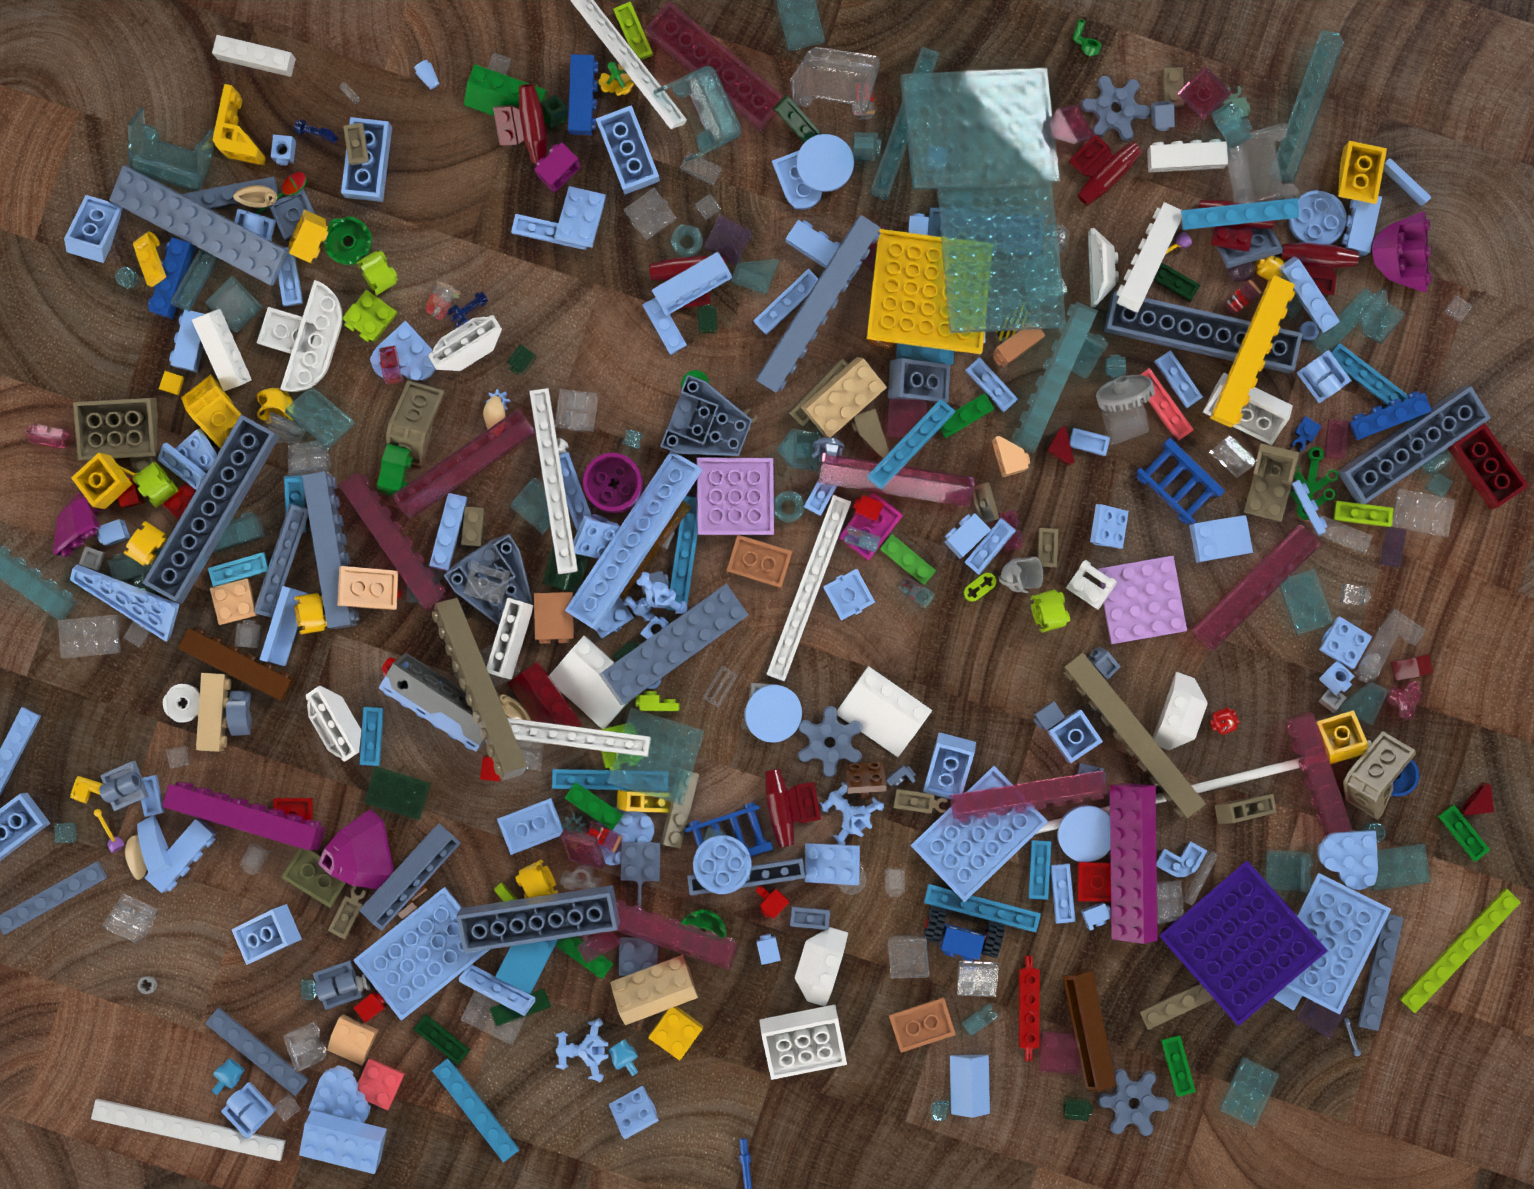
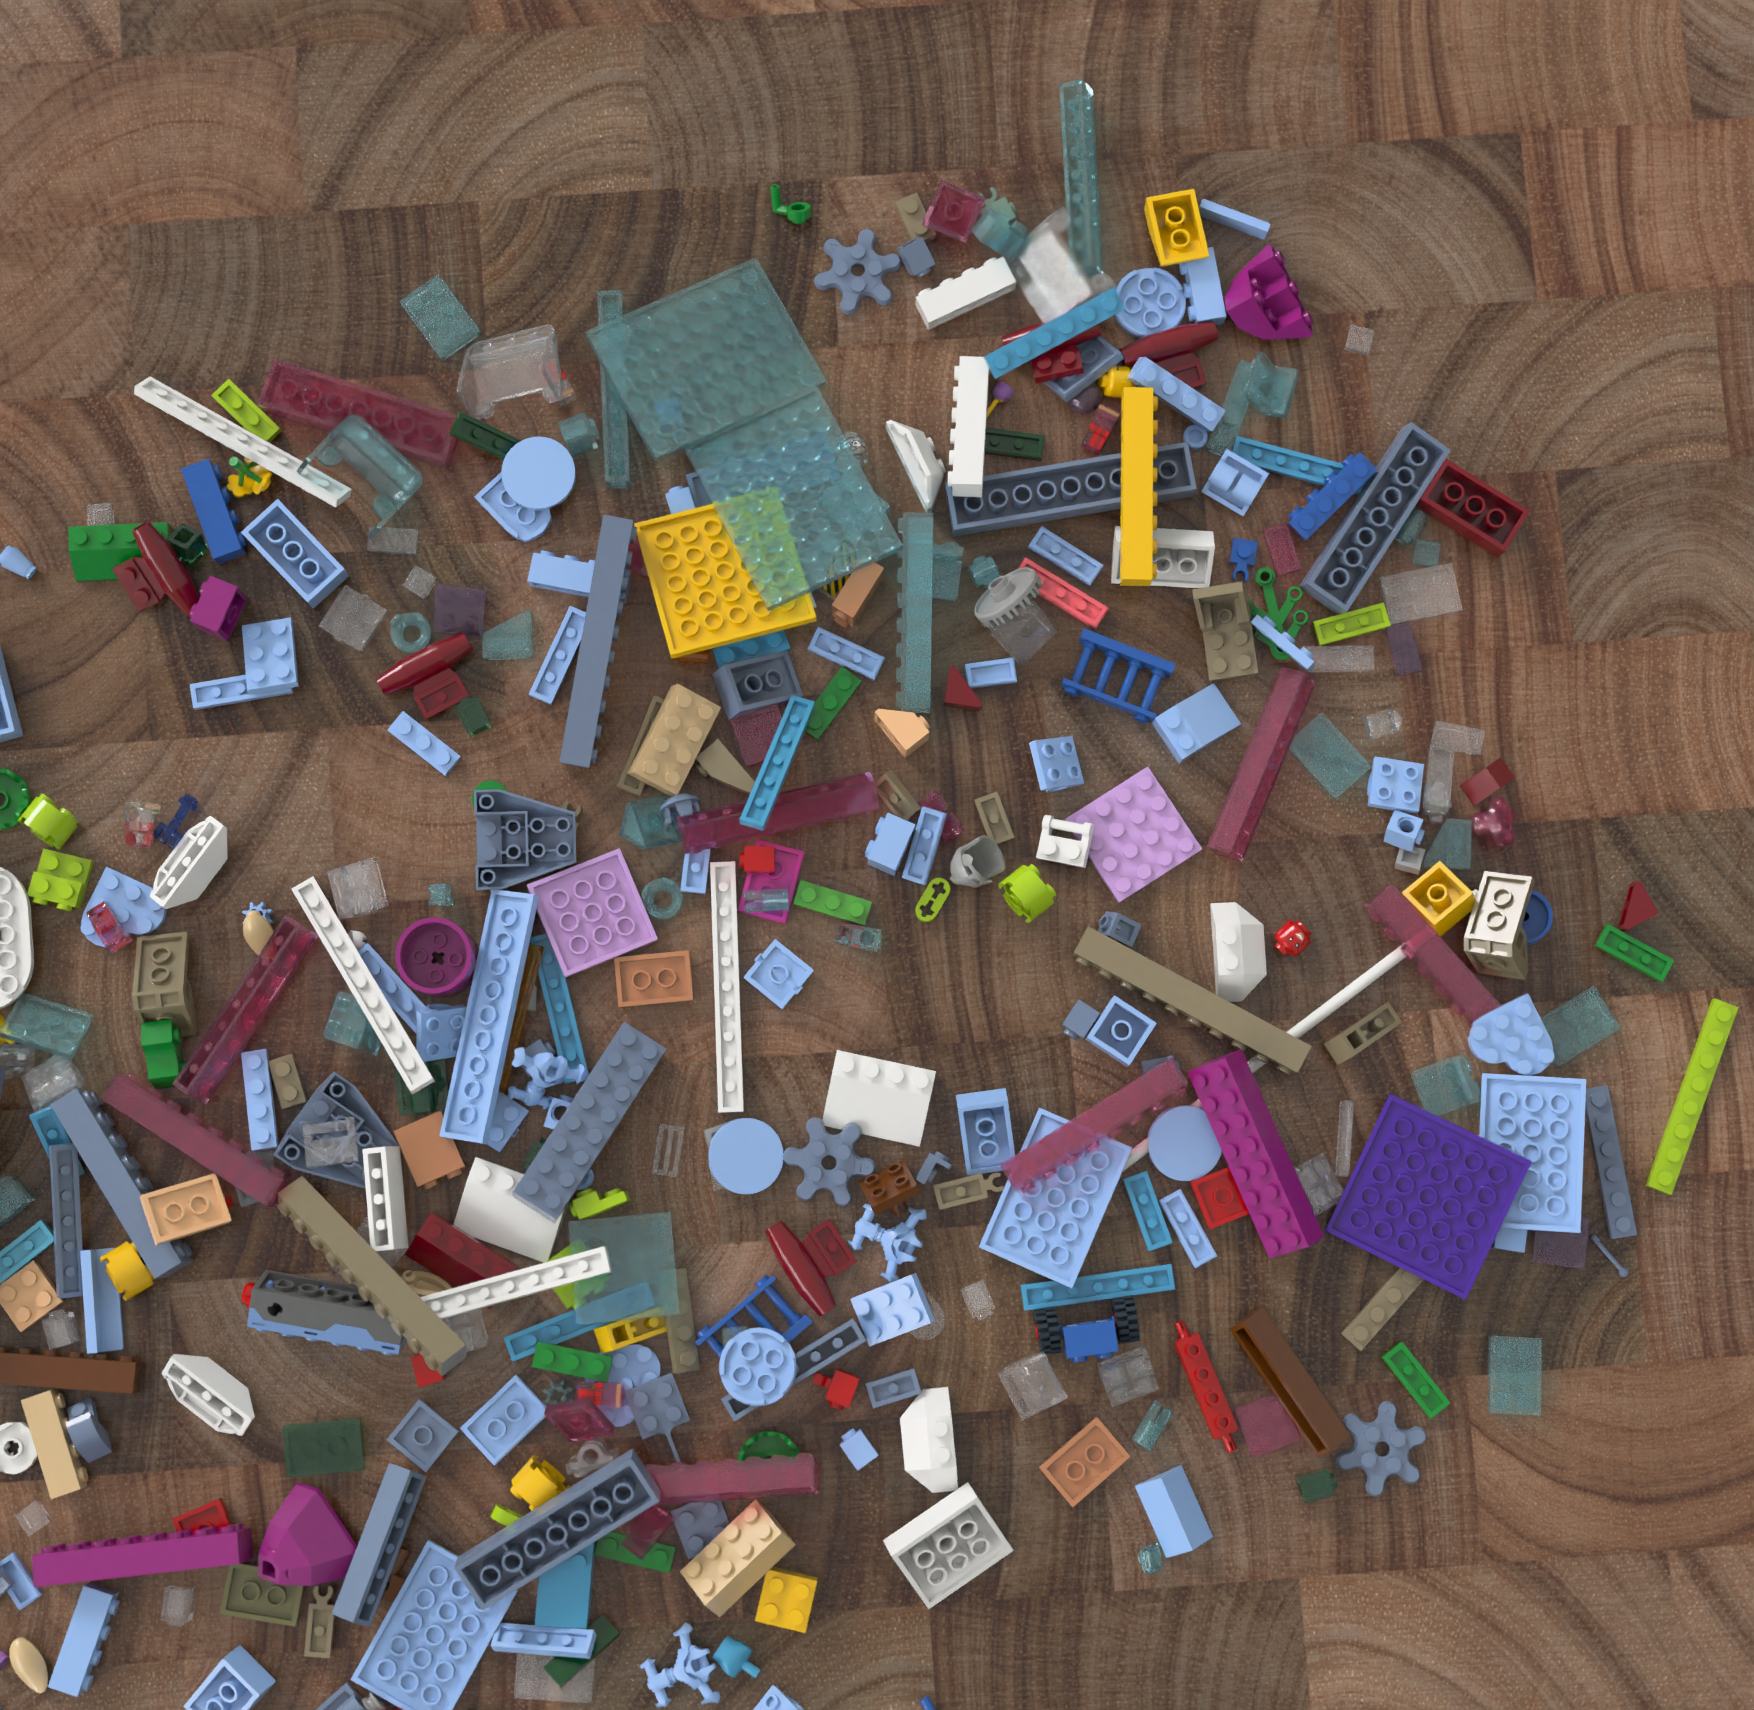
camera: 20 degrees left, 5 degrees down
(153, 846) = (44, 1642): light blue slope -> none
(371, 736) = (264, 1390): dark azure plate -> none
(469, 813) = (423, 1435): none -> sand blue plate
(521, 360) = (266, 856): clear green brick -> none
(692, 283) = (436, 680): light blue panel -> none
(1070, 125) = (812, 312): clear pink slope -> none
(1096, 915) = (1239, 1237): light blue brick -> none
(1102, 167) = (870, 345): dark red plate -> none
(1183, 865) = (1318, 1133): light blue plate -> none
(1233, 456) = (1168, 619): clear plate -> none
(1293, 308) = (1165, 418): clear light blue tile -> none
(1380, 830) = (1534, 992): clear light blue wheel -> none

